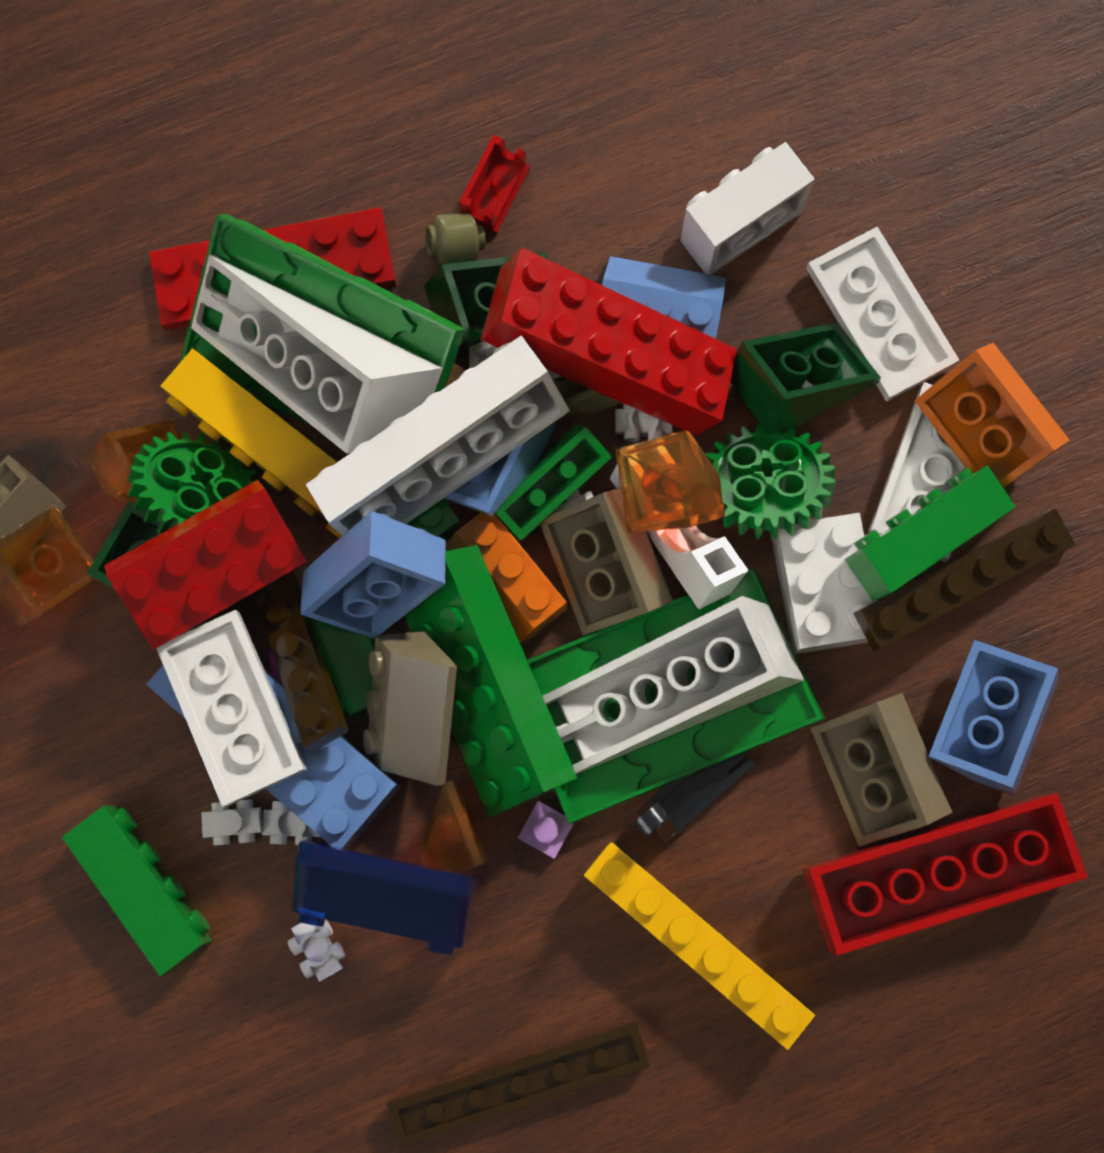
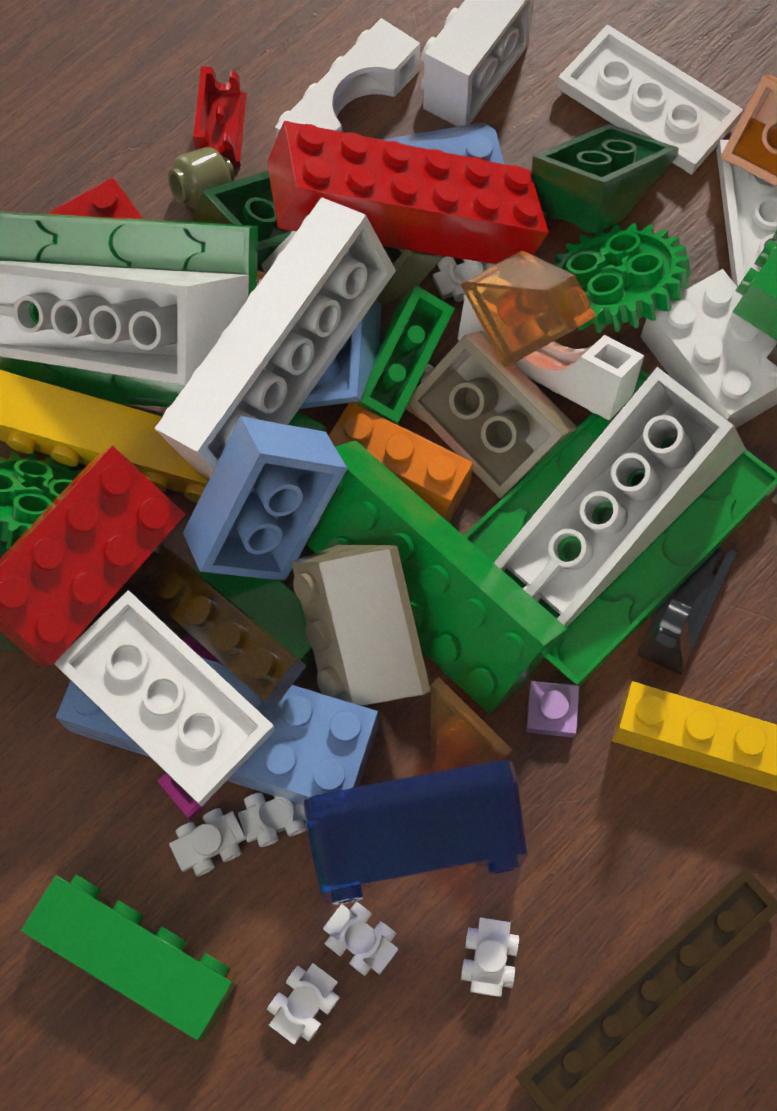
camera: 25 degrees left, 10 degrees down
(263, 973) = (296, 1013): none -> white piece
(404, 1013) = (491, 947): none -> white piece
(655, 184) = (377, 64): none -> white arch

